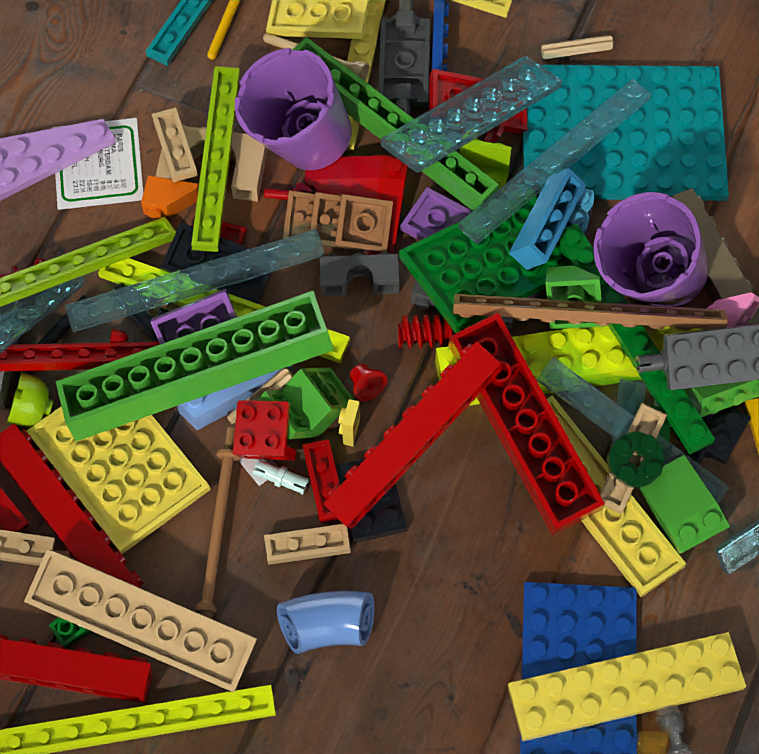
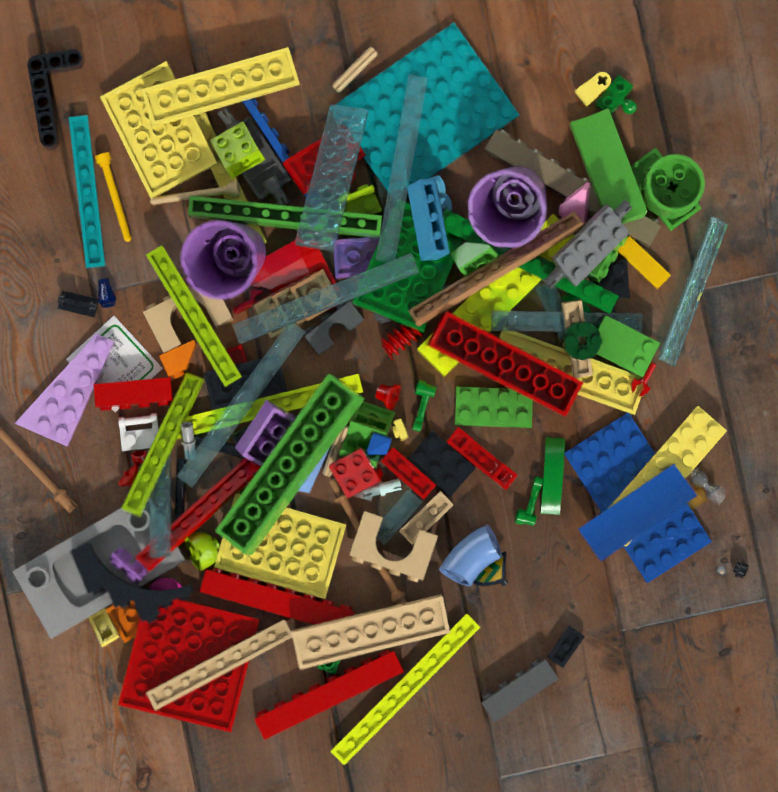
camera: 35 degrees left, 20 degrees up
(53, 245) = (138, 438): none -> white plate
(91, 198) = (133, 393): none -> red brick
(108, 80) = (78, 303): none -> black hinge
(110, 275) = (188, 439): none -> light grey axle
(118, 336) = (220, 471): red hinge -> none
(143, 91) = (106, 295): none -> clear blue cone
(174, 144) = (161, 325): tan plate -> none
(252, 579) = (413, 565): none -> tan arch
(273, 519) = (397, 516): none -> clear light blue plate
(312, 416) = (379, 444): none -> blue slope
(337, 659) = (493, 573): none -> shield
(373, 227) = (325, 298): none -> clear light blue plate
(391, 37) = (237, 150): none -> lime bracket
(407, 399) = (426, 391): none -> green brick
(413, 435) = (448, 419): red brick -> none
(421, 522) = (482, 458): none -> red slope
(428, 624) = (527, 516): none -> green brick
(476, 477) = (492, 408): none -> bright green plate
(490, 600) = (552, 475): none -> green slope
(566, 703) = (637, 512): none -> blue arch
(680, 560) = (644, 380): none -> red bar

